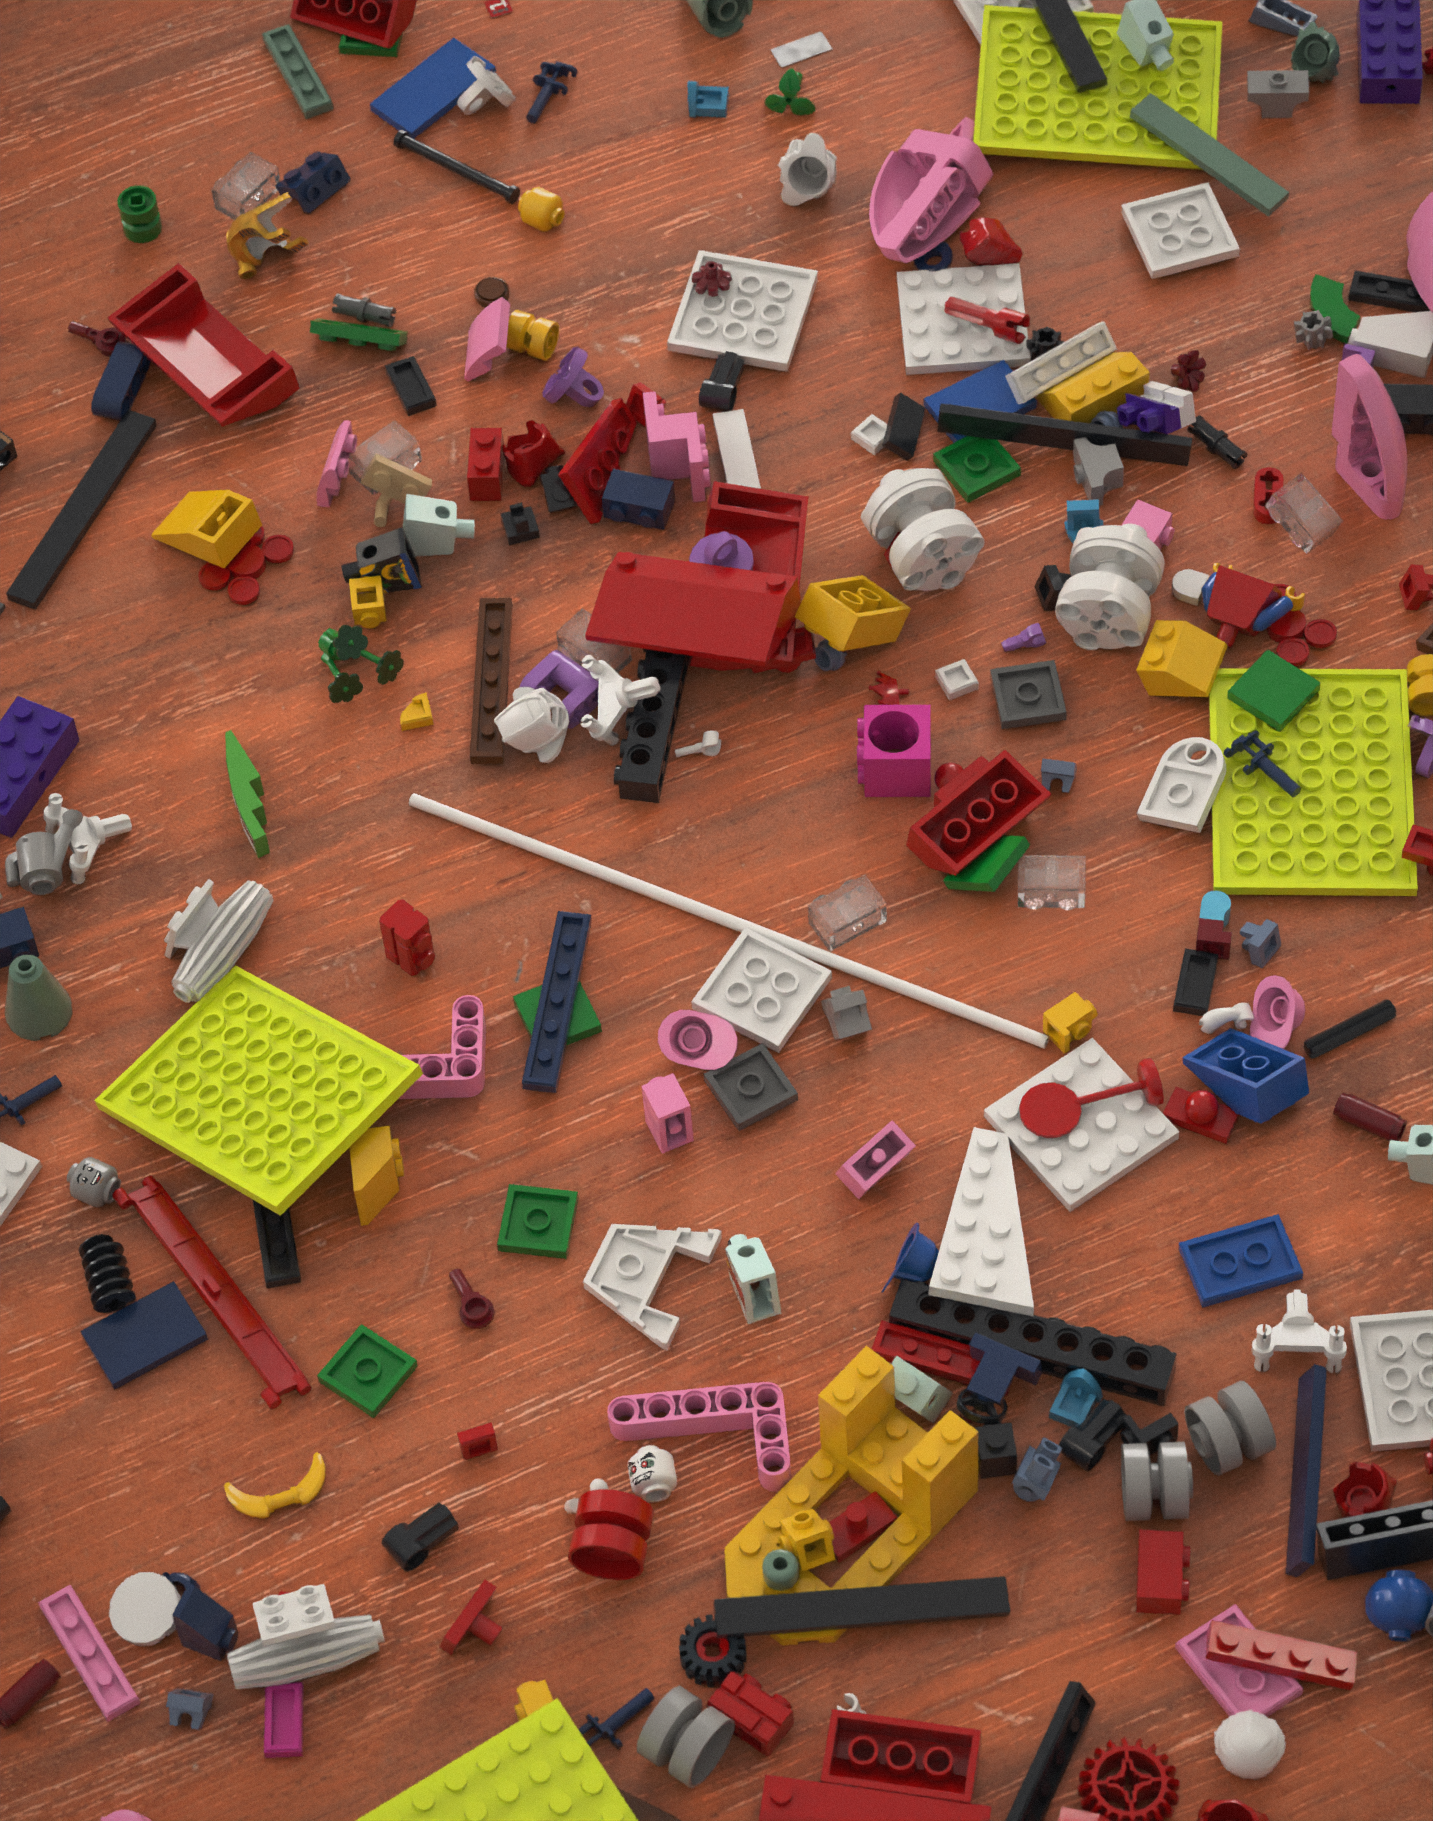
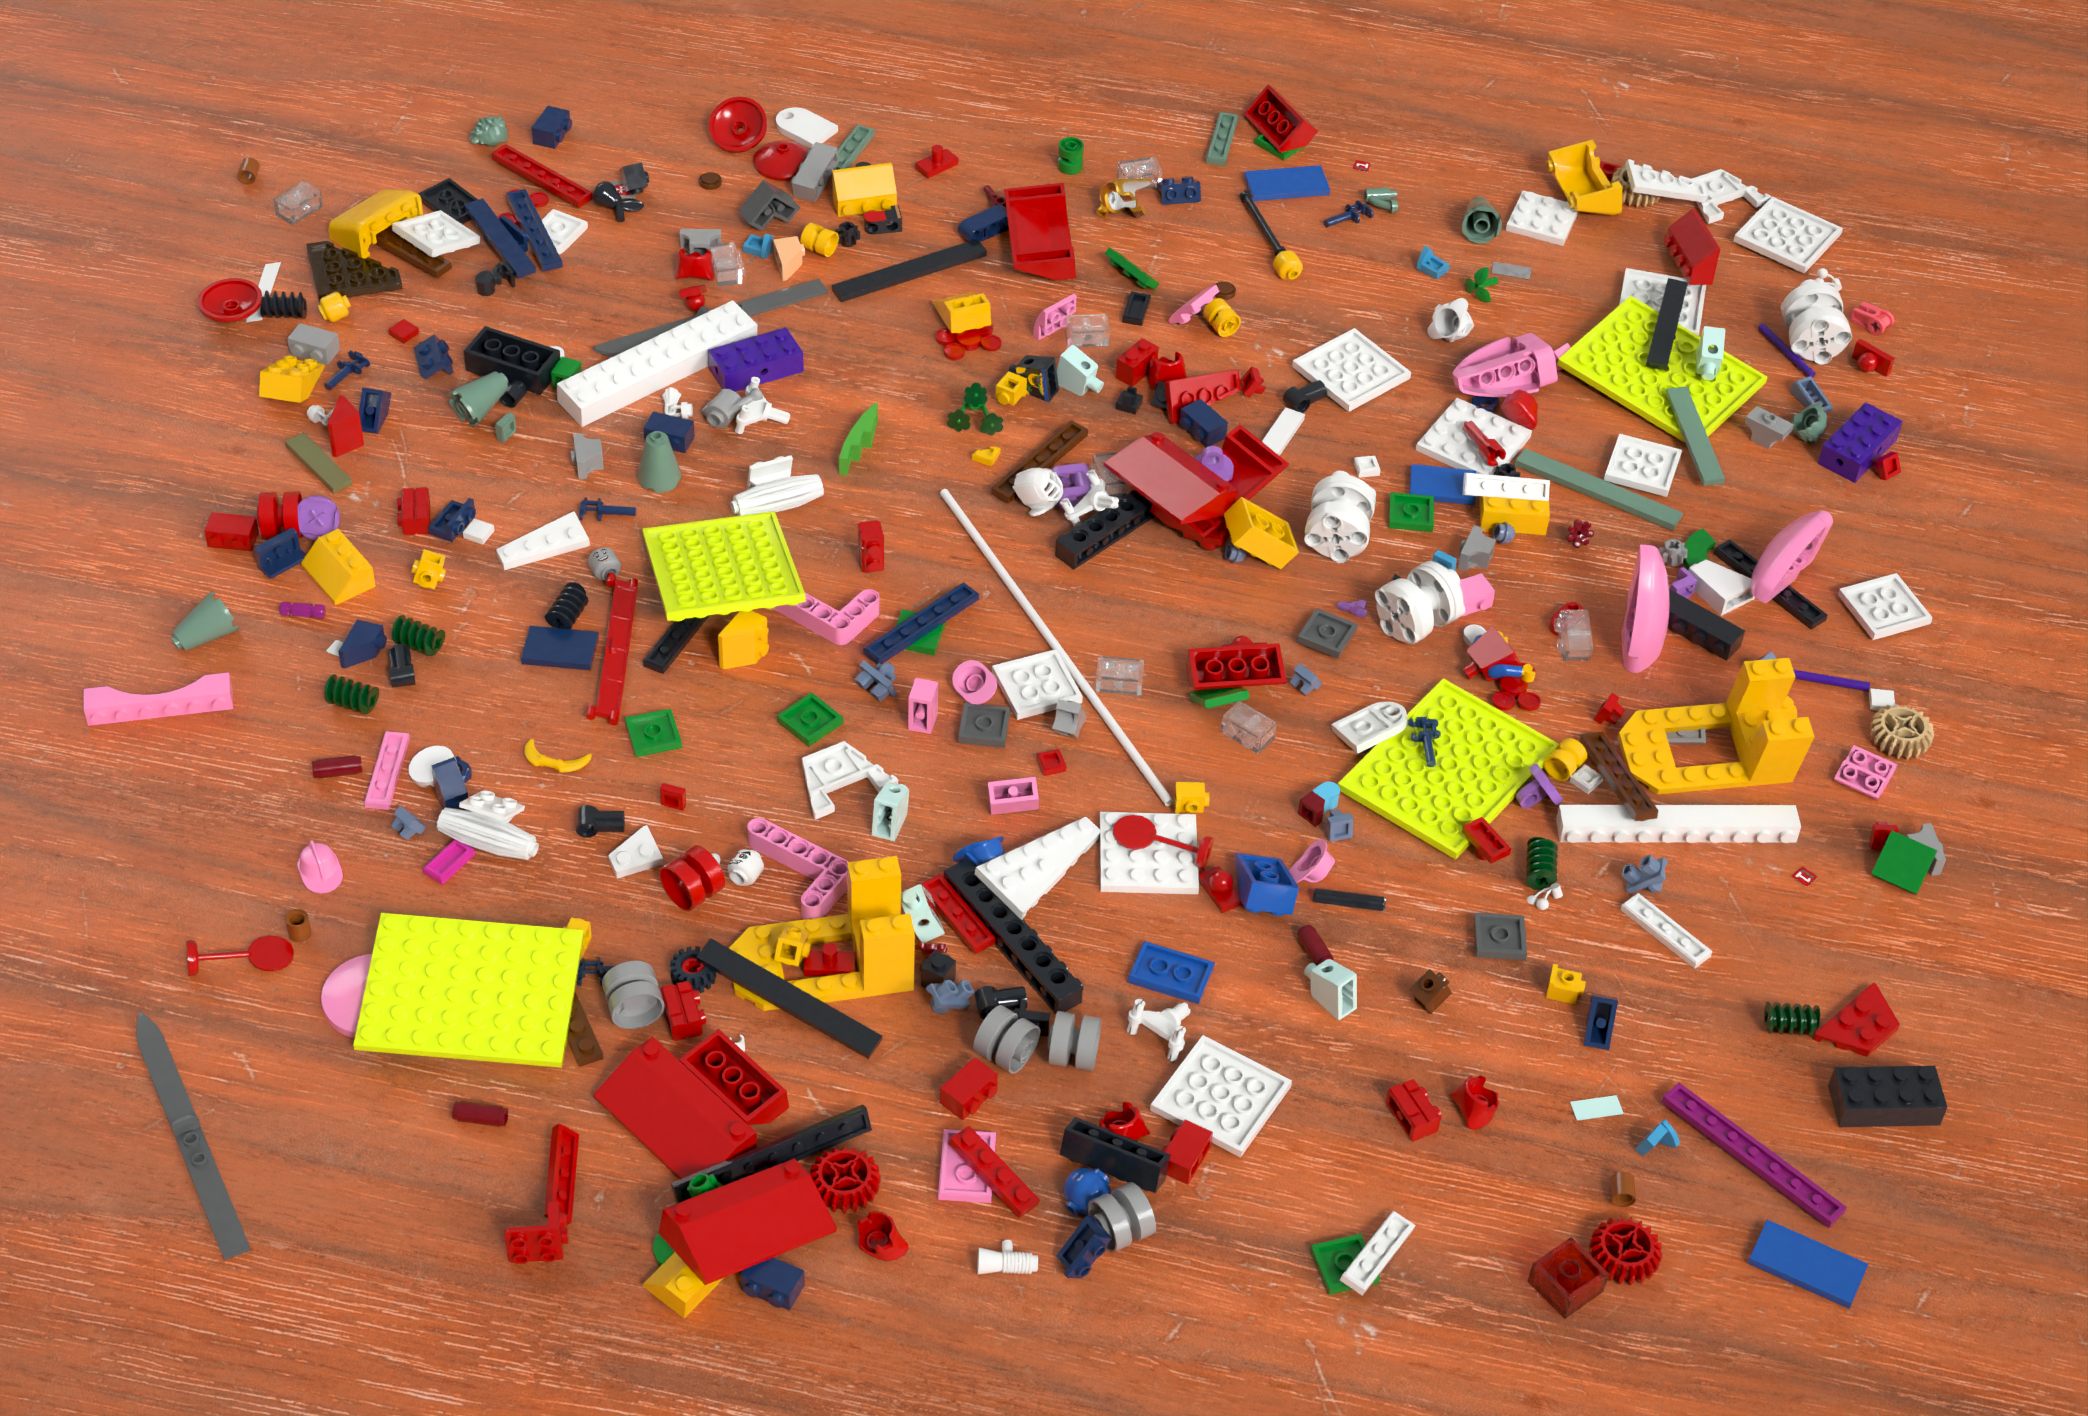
camera: 30 degrees right, 10 degrees down
(364, 310) = (1145, 260): dark grey pin -> none
(394, 483) = (1075, 334): tan plate -> none
(473, 1620) = (585, 874): red tile -> none
(475, 1309) = (735, 737): dark red plate -> none
(486, 86) = (1311, 193): white tile -> none
(500, 1547) = (636, 854): none -> white wing
(558, 41) = (1379, 196): none -> sand green plant
(558, 1112) = (881, 678): none -> sand blue hips
(571, 380) = (1222, 347): medium lavender tile -> none
(676, 446) = (1245, 403): bright pink bracket -> none
(710, 745) = (1126, 557): white hand -> none
(711, 278) = (1346, 343): dark red plant -> none
(780, 1569) = (761, 949): sand green piece -> none
(868, 1082) = (1051, 762): none -> red tile
(888, 690) = (1250, 589): red piece -> none
(895, 728) = (1221, 612): dark pink brick -> none
(903, 426) = (1386, 470): black tile -> none
(956, 679) = (1295, 605): white tile -> none
(993, 1378) = (966, 931): dark blue piece -> none
(1061, 433) = (1467, 518): black tile -> none
(1076, 1398) = (1009, 977): dark azure tile -> none
(1156, 295) = (1599, 489): none -> sand green tile
(1158, 409) = (1538, 540): dark purple hips -> none
(1180, 660) = (1428, 662): yellow slope -> none
(1195, 982) = (1283, 825): black tile -> none
(1217, 442) = (1561, 576): black pin -> none
(1217, 1017) = (1291, 853): white arm -> none
(1249, 1744) = (932, 1203): white hair -> none
(1273, 690) = (1469, 708): green tile -> none
(1306, 1471) = (1103, 1091): dark blue tile -> none
(1389, 1755) = (1007, 1261): none -> white piece

